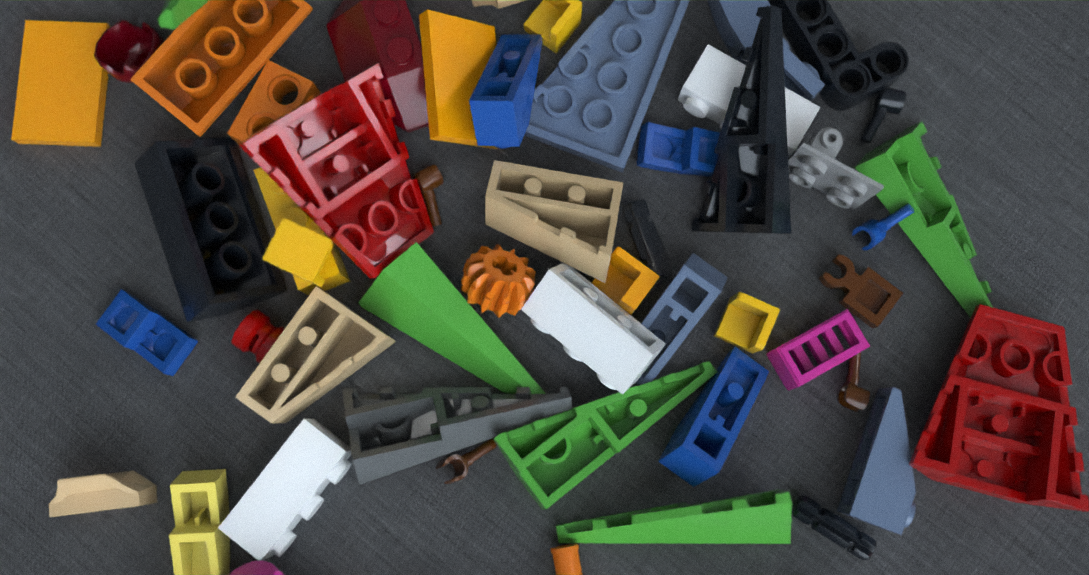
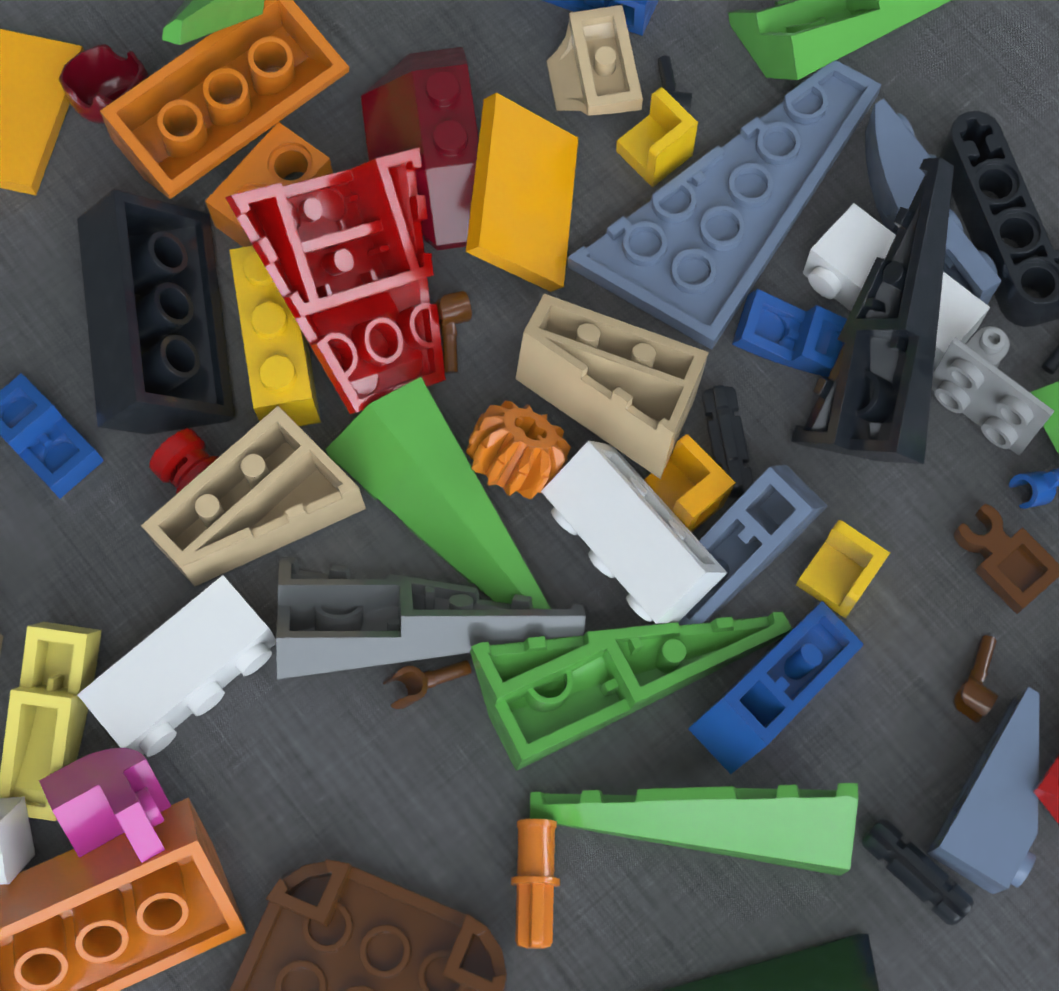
camera: 10 degrees right, 10 degrees down
(299, 251) = (267, 353): yellow panel -> none
(506, 91) = (576, 214): blue slope -> none
(788, 370) = (890, 646): dark pink slope -> none

